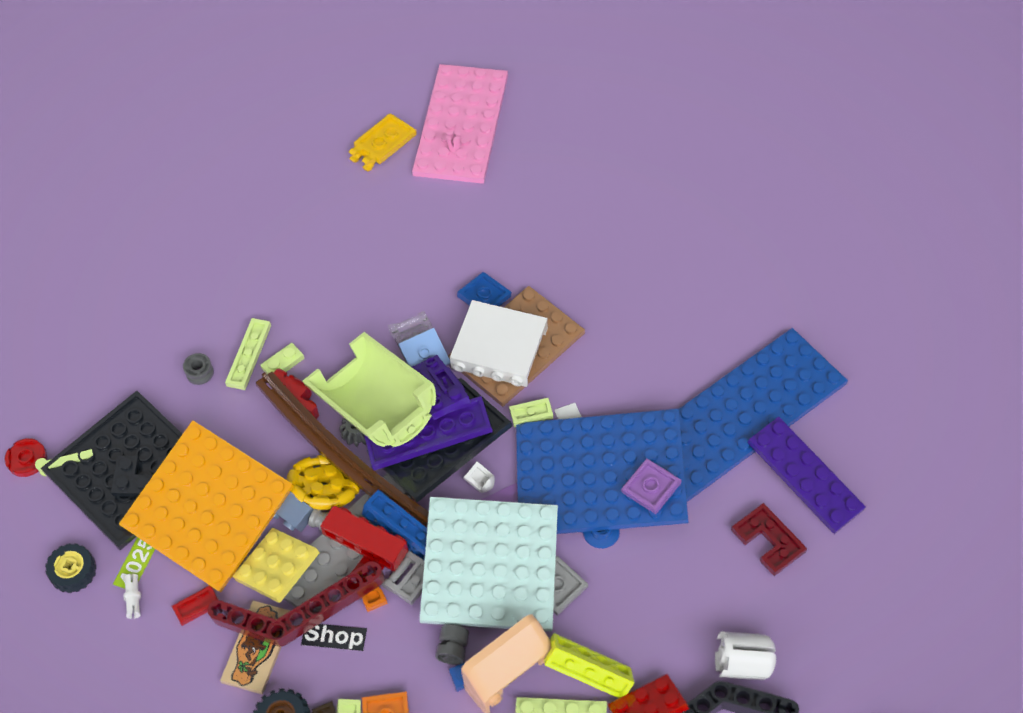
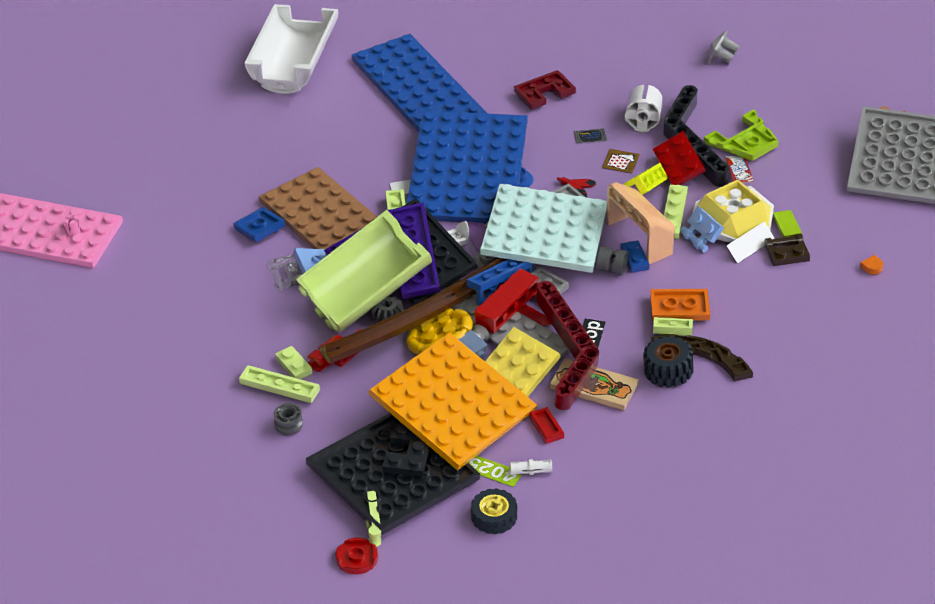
camera: 85 degrees left, 15 degrees down
(381, 141) = (42, 283): yellow tile -> none
(498, 343) = (325, 206): white panel -> none
(596, 593) = (578, 184): none -> red piece
(651, 486) = (494, 129): medium lavender tile -> none
(653, 642) = (621, 160): none -> sticker
(696, 602) = (591, 135): none -> sticker
(776, 260) = (288, 49): none -> white cylinder
(806, 475) = (491, 63): dark purple plate -> none

